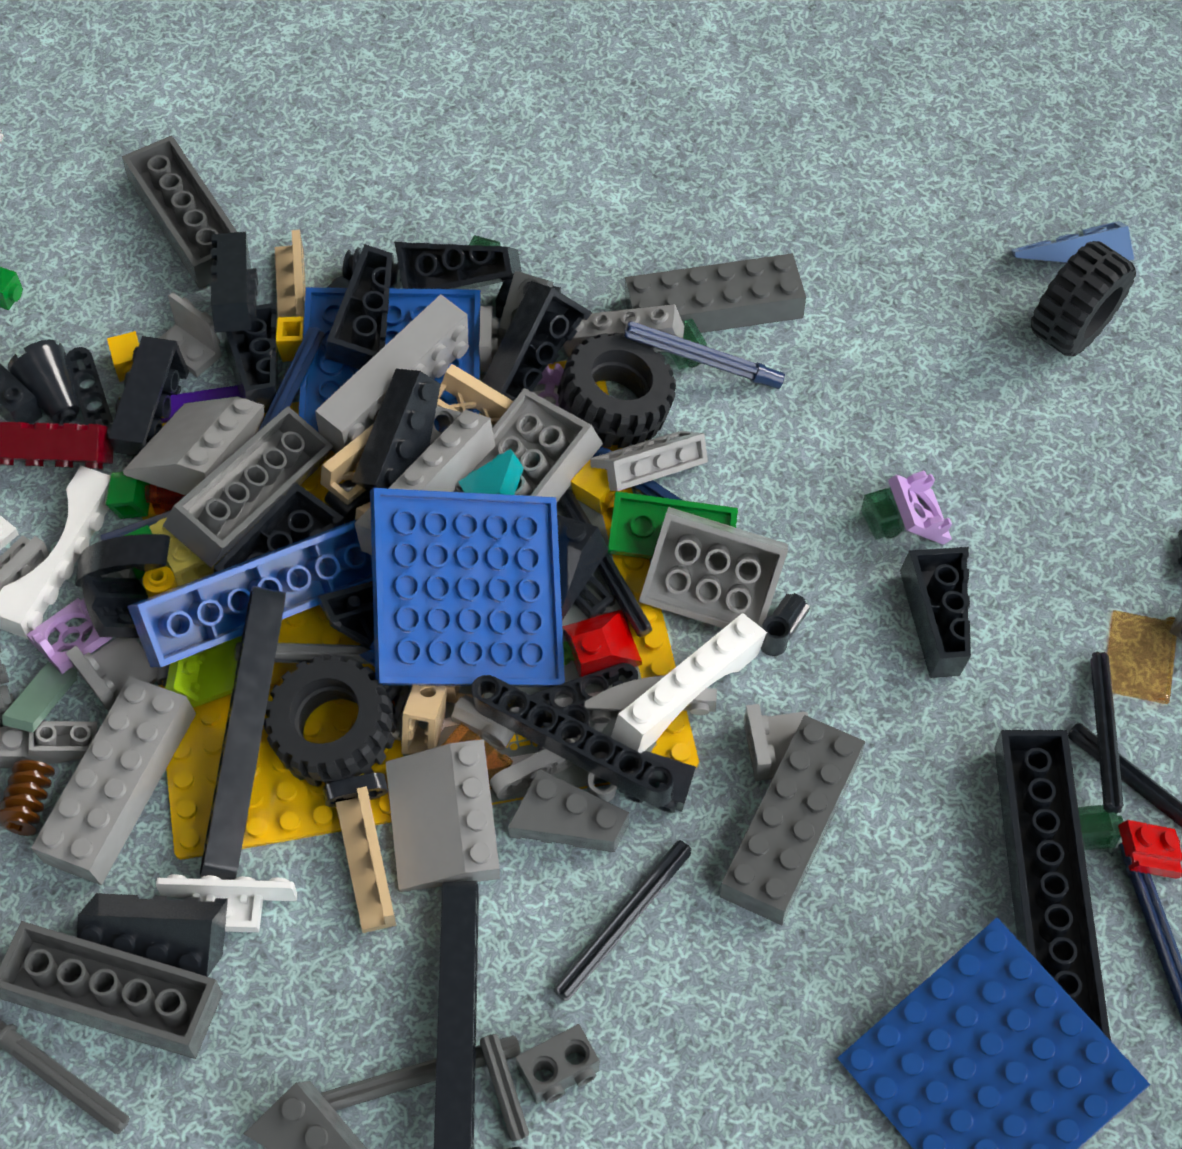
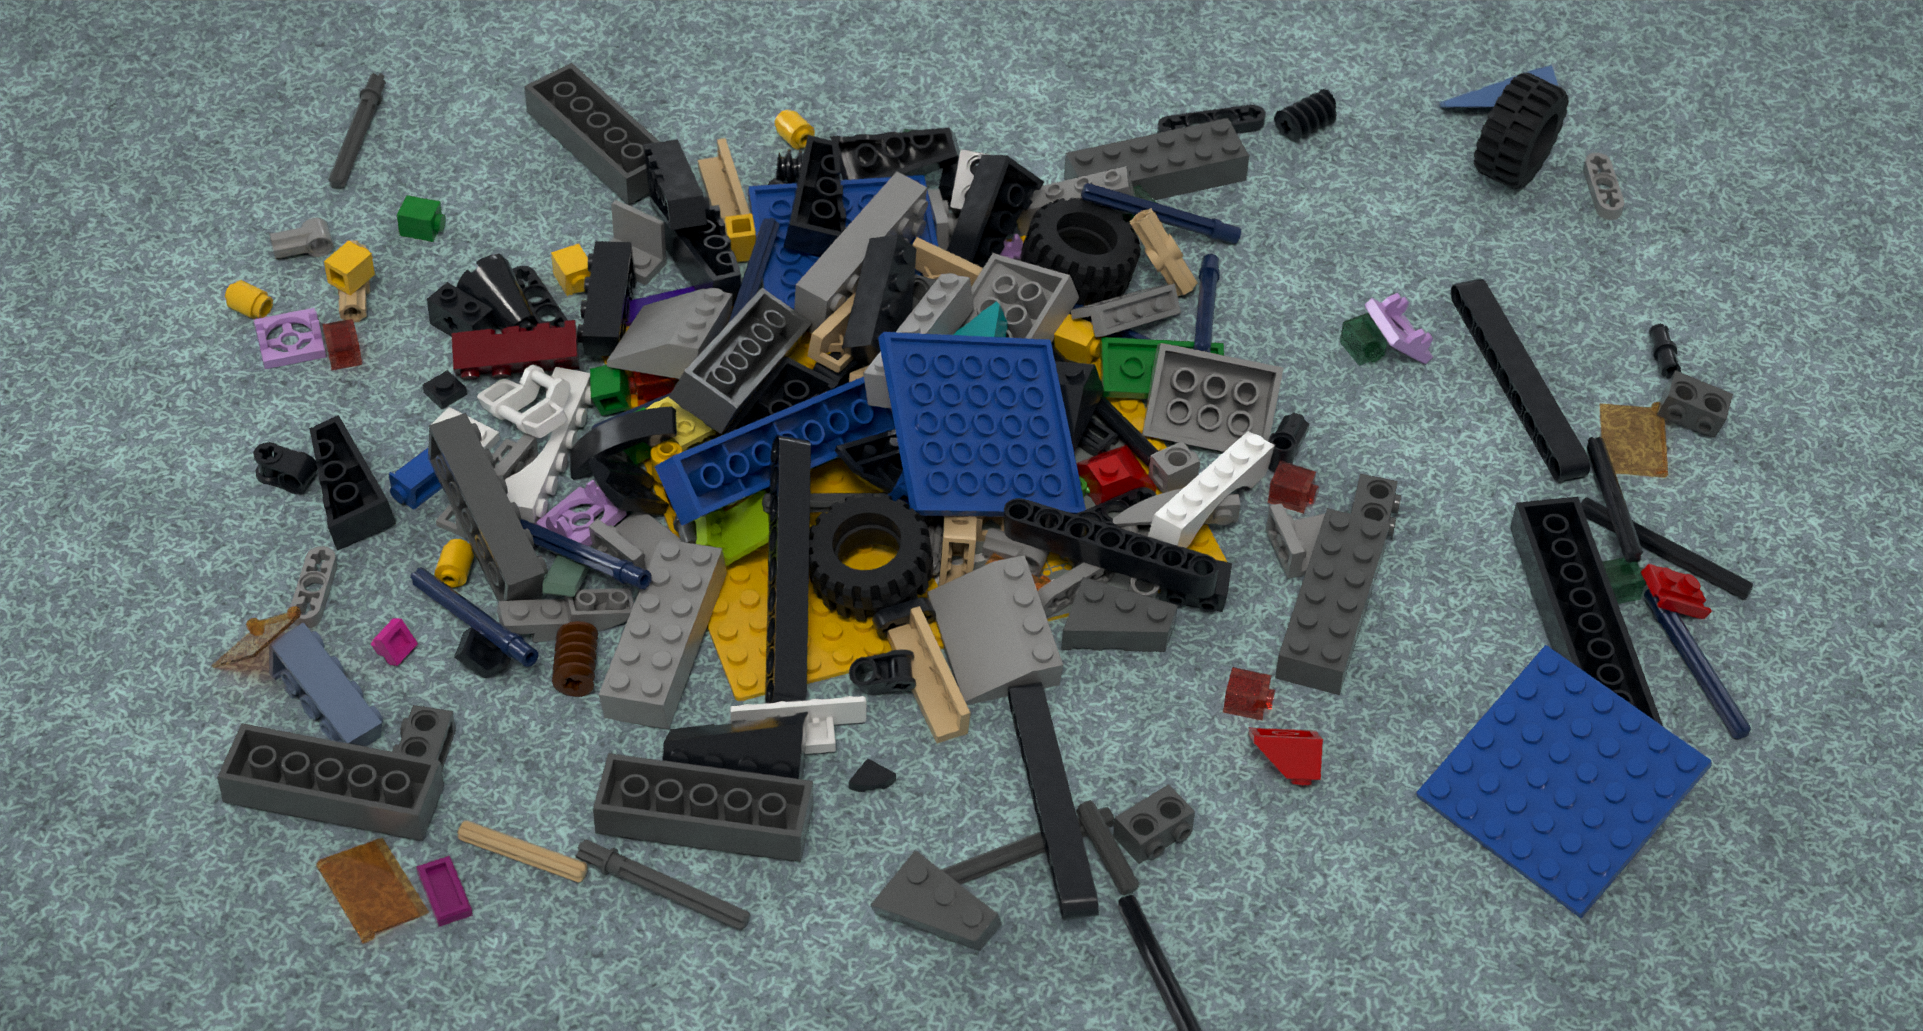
camera: 10 degrees left, 10 degrees down
(55, 521) = (540, 418): none -> white bar
(81, 710) = (620, 570): none -> dark blue axle
(287, 968) = (871, 777): none -> black tile
(324, 853) = (890, 672): none -> black piece
(373, 222) = (793, 128): none -> yellow brick
(622, 920) = (1187, 704): black axle -> none
(659, 657) = (1173, 467): none -> light grey brick
(686, 918) = (1248, 694): none -> clear red brick
(697, 399) = (1163, 251): none -> tan piece
(713, 992) = (1291, 751): none -> red slope
(742, 425) = (1208, 276): none -> dark blue axle
(779, 678) = (1293, 487): none -> clear red brick
(781, 246) = (1243, 113): none -> black beam
(851, 713) = (1377, 500): none -> dark grey brick
(874, 254) = (1307, 115): none -> black piece
(939, 606) = (1435, 411): black wedge -> none
(1035, 579) = (1520, 380): none -> black beam
(1166, 351) = (1599, 195): none -> light grey beam

